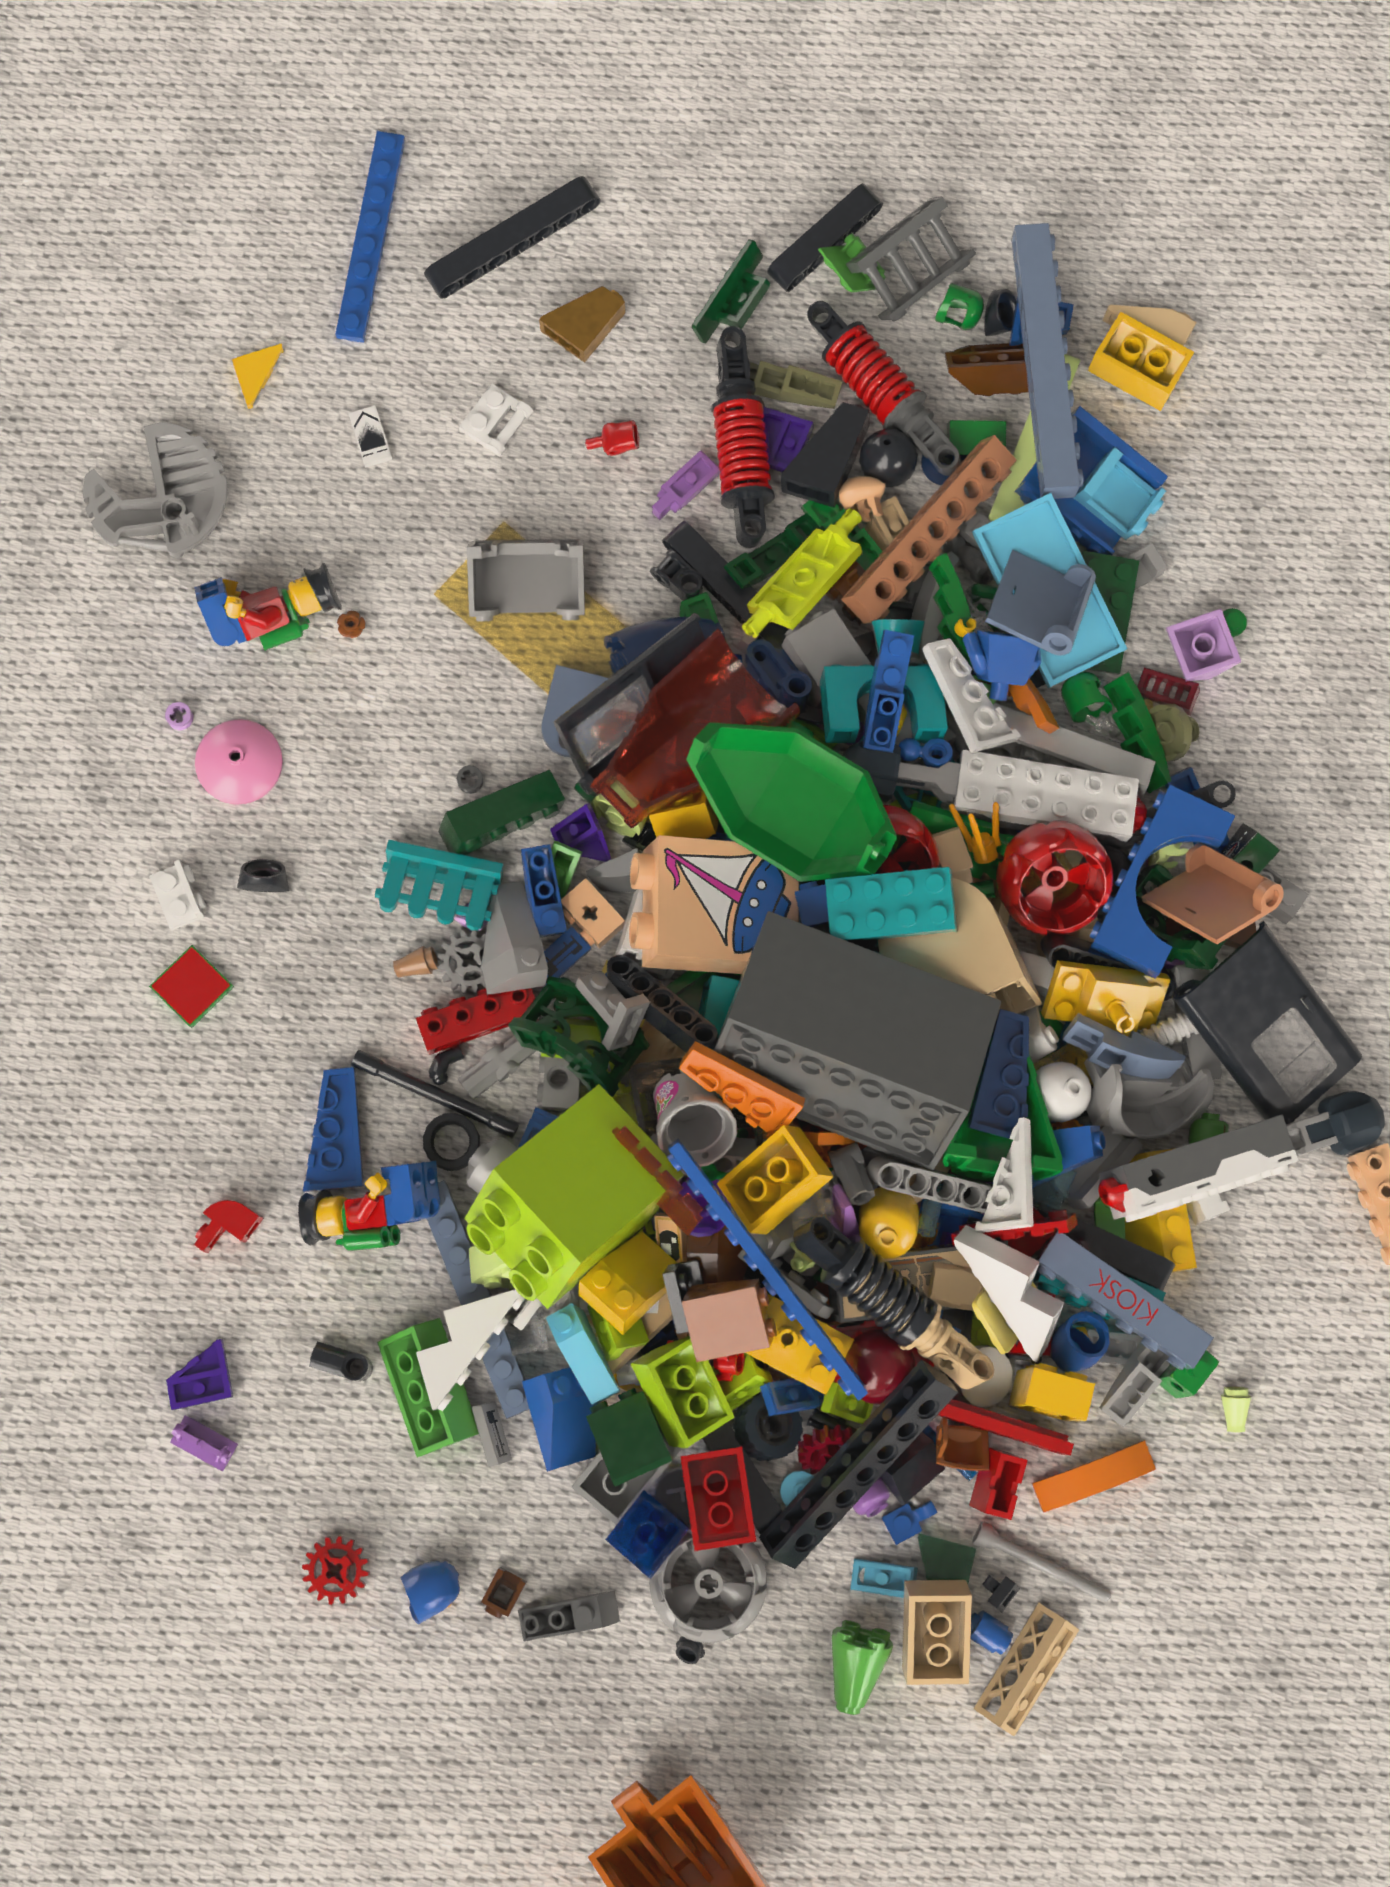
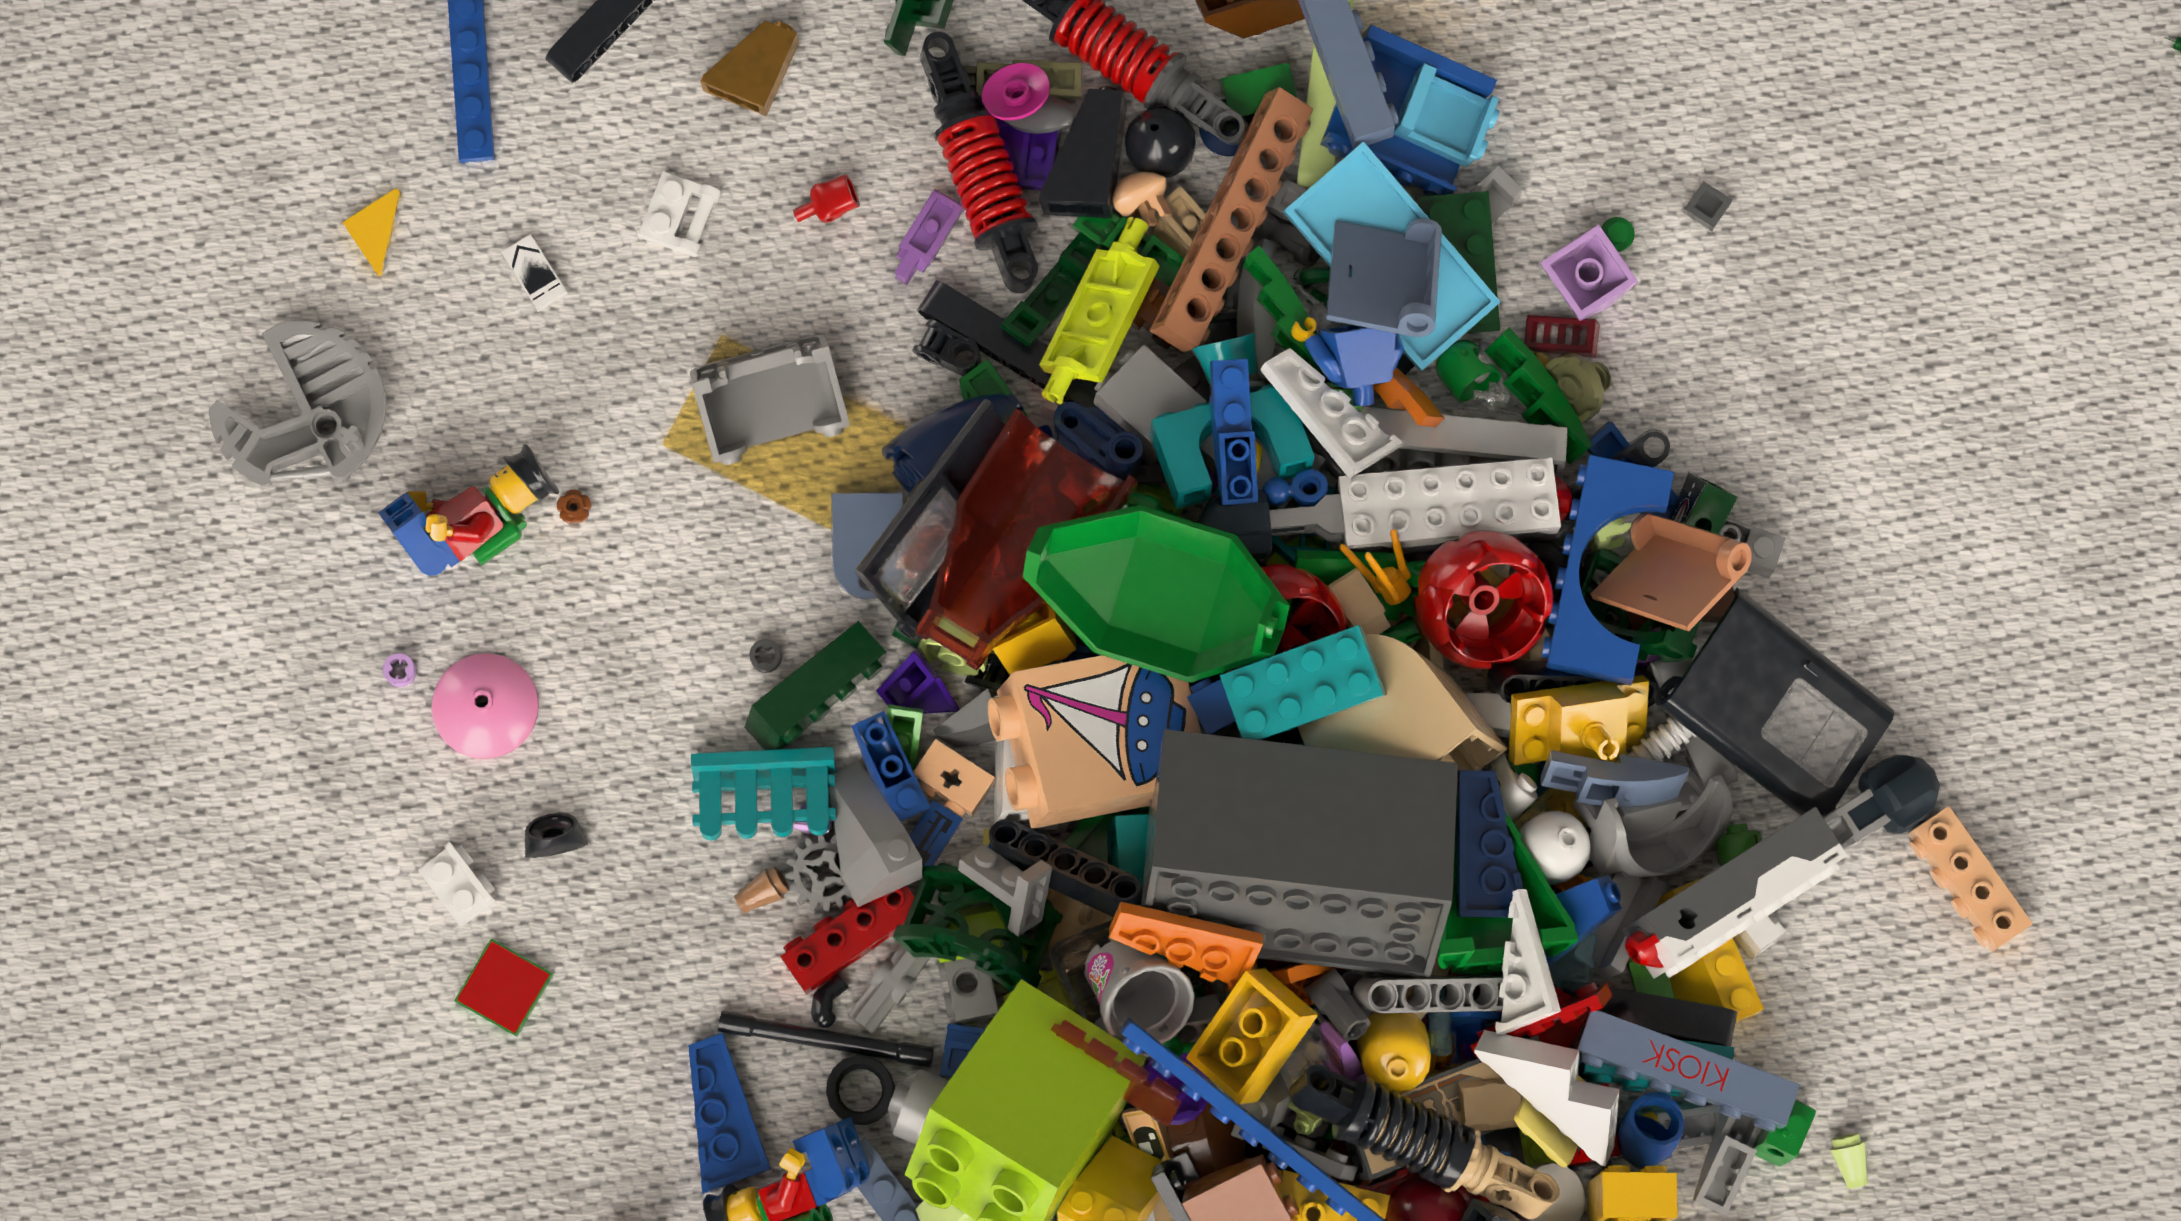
camera: 10 degrees left, 0 degrees up
(784, 388) = (1015, 91): none -> dark pink dish
(796, 411) = (1052, 116): none -> dark grey arm
(1310, 618) = (1707, 206): none -> dark grey plate

